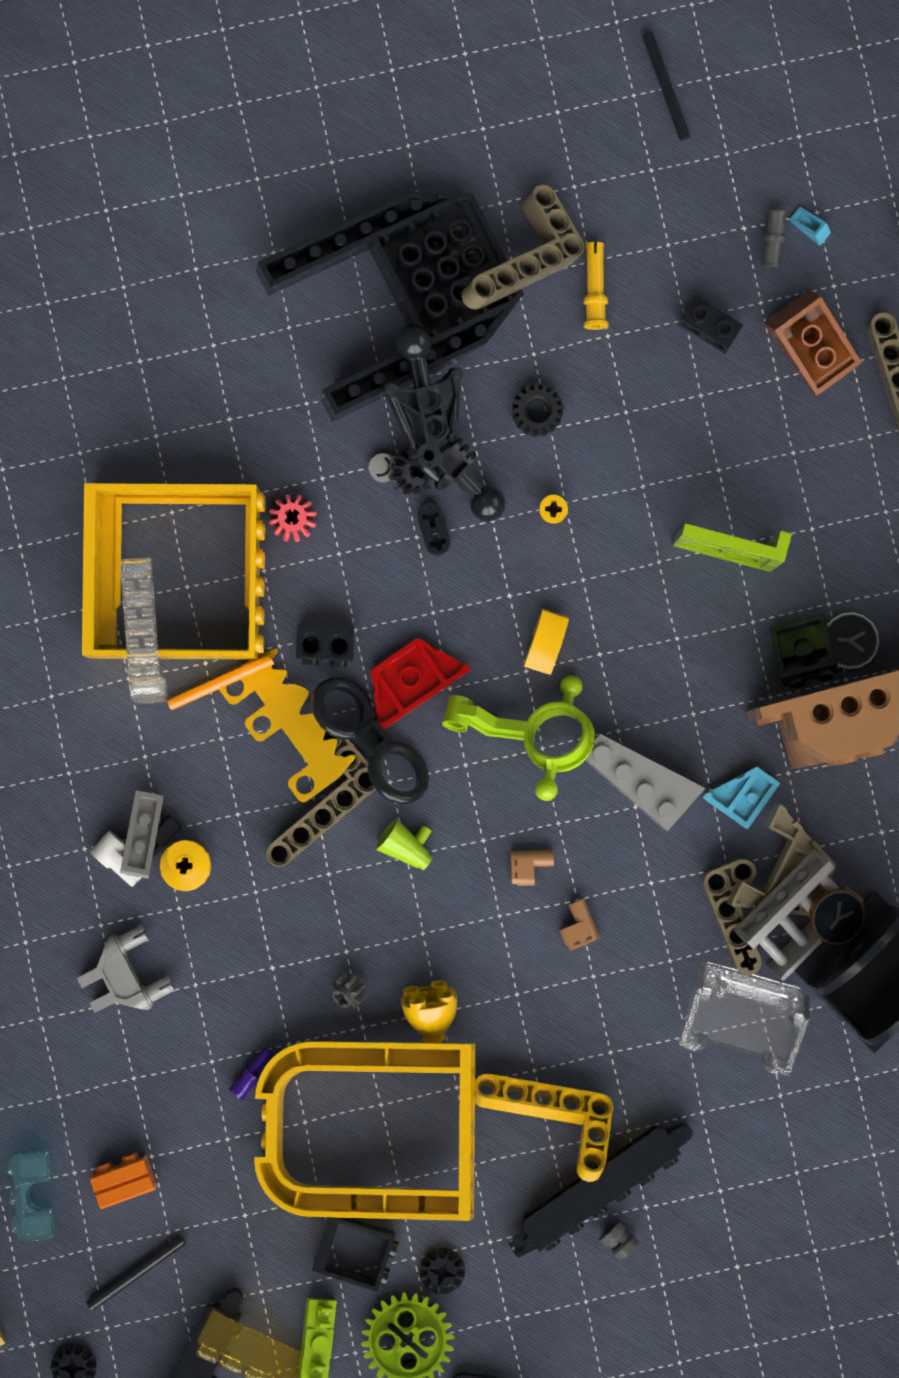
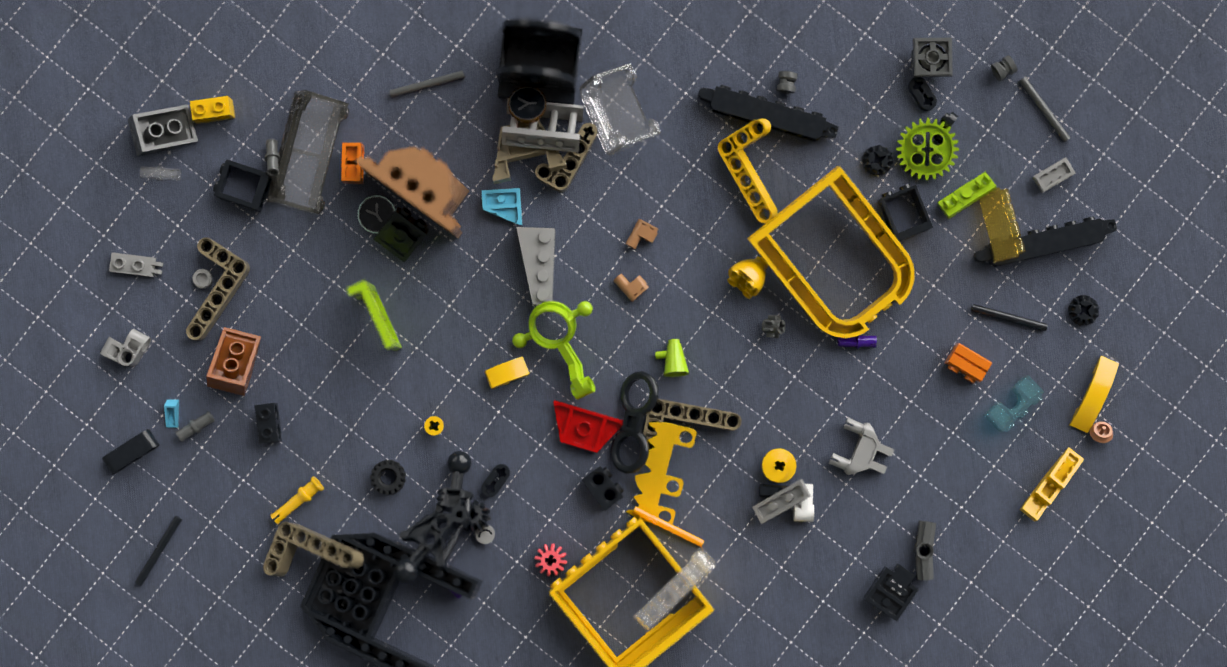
camera: 130 degrees left, 0 degrees up
(804, 144) = (130, 451): none -> black beam

